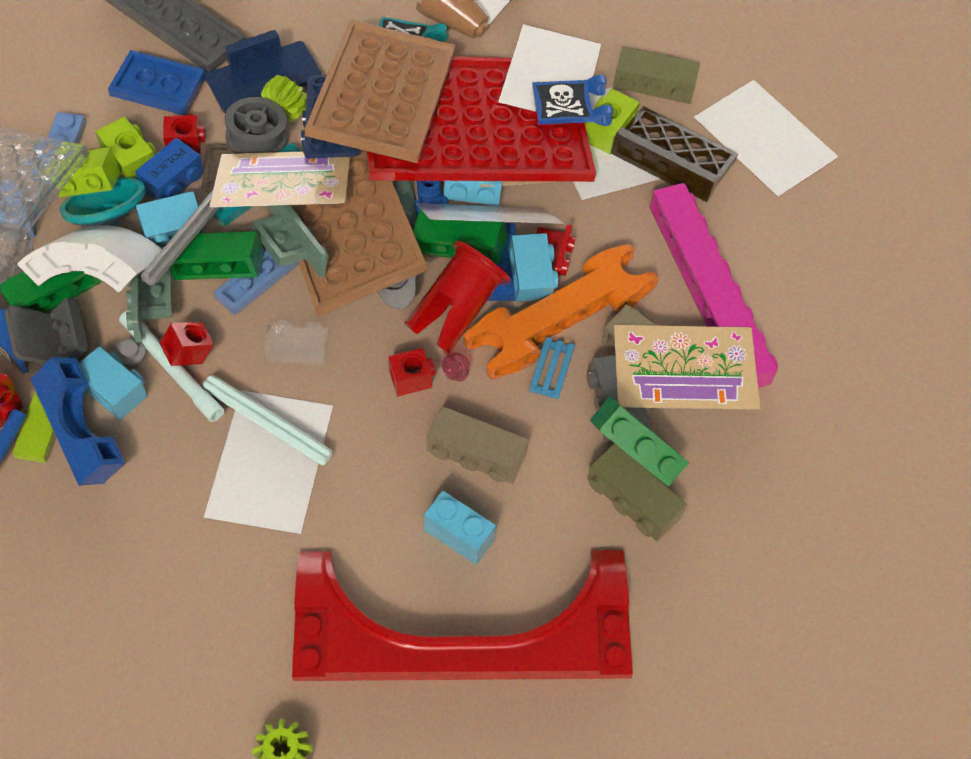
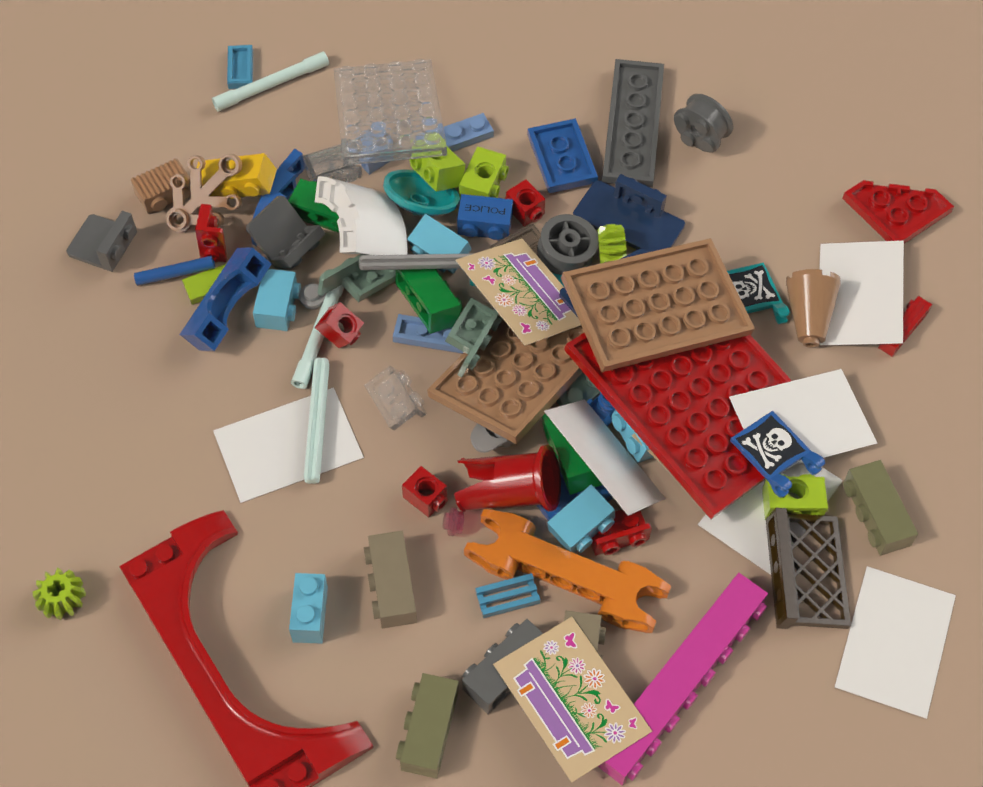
camera: 60 degrees right, 0 degrees up
(639, 441) = (464, 696): green brick -> none

